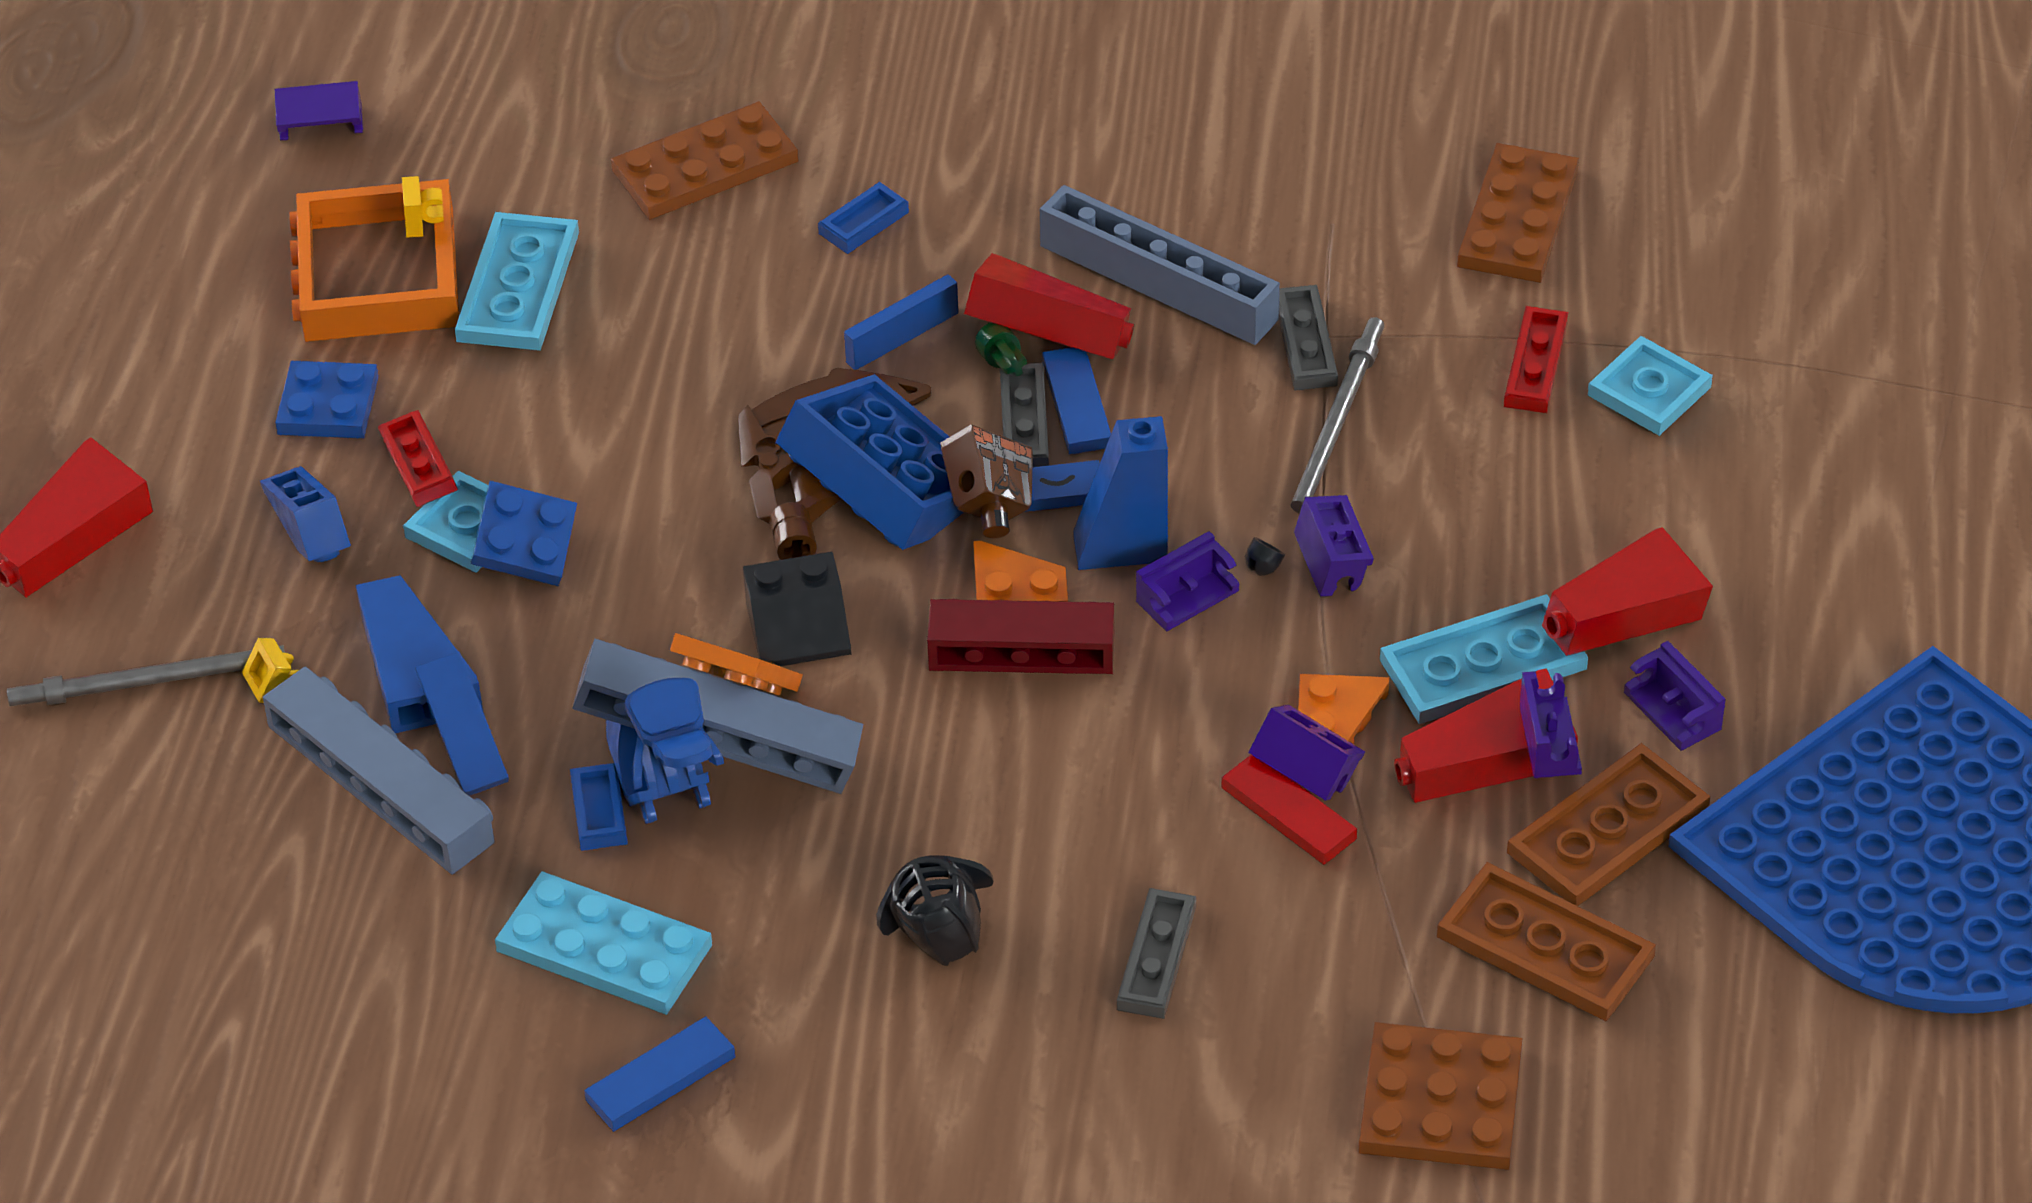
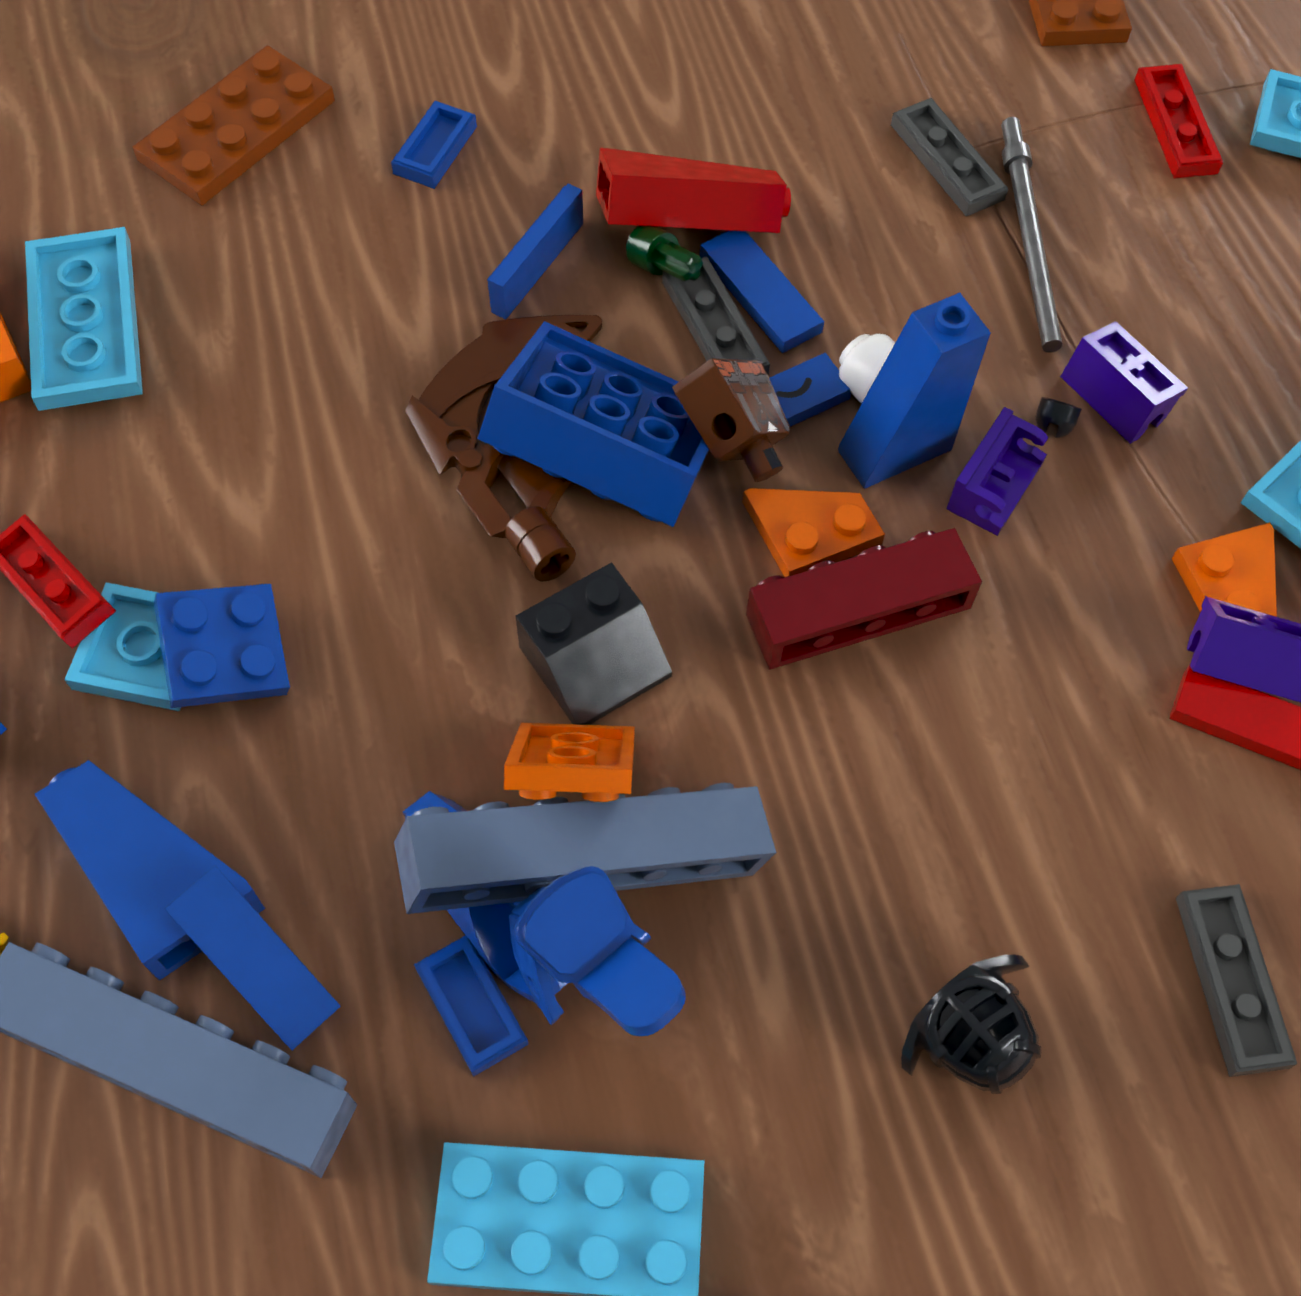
camera: 25 degrees left, 15 degrees up
(1159, 264) = (775, 115): sand blue brick -> none

